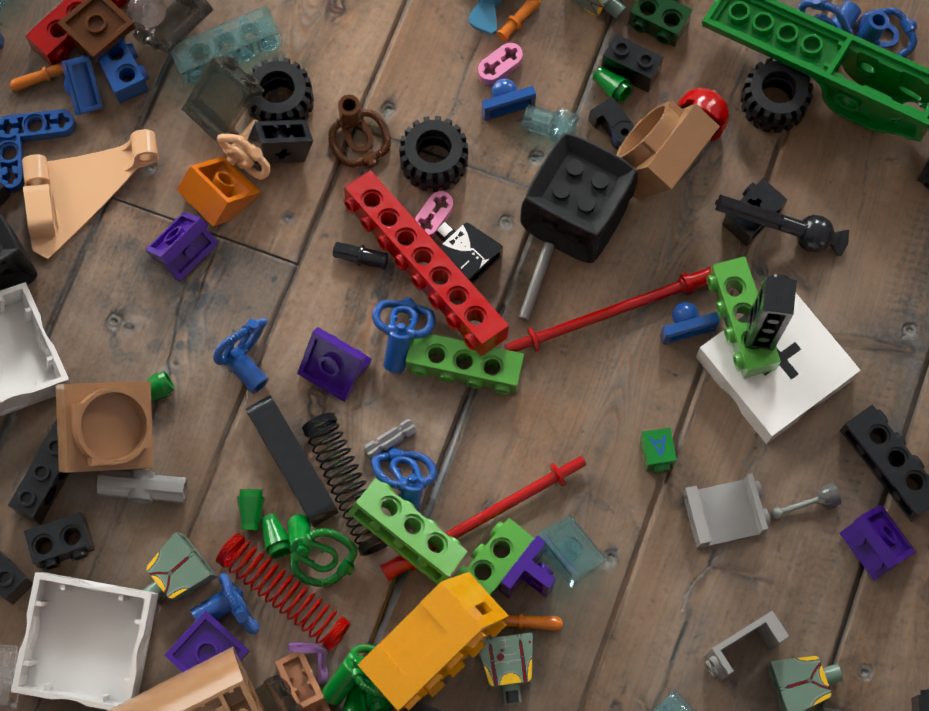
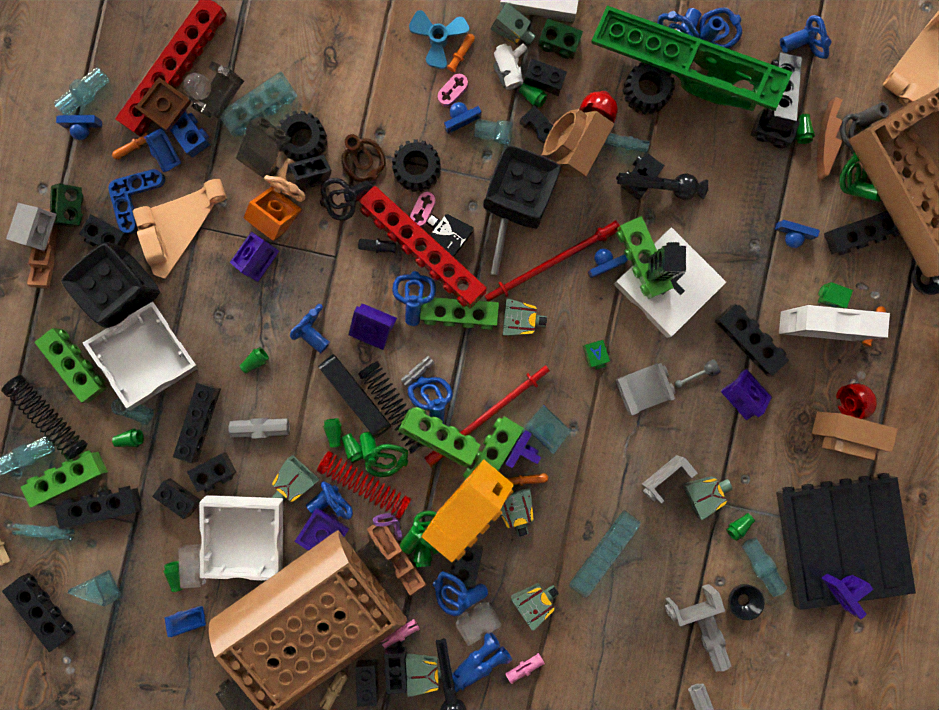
camera: 10 degrees left, 15 degrees up
(104, 426) = (226, 396): medium nougat container -> none
(335, 179) = (351, 195): none -> black piece
(553, 384) = (521, 319): none -> sand green torso
(581, 42) = (507, 67): none -> white piece
(733, 163) = (628, 143): none -> clear light blue pin

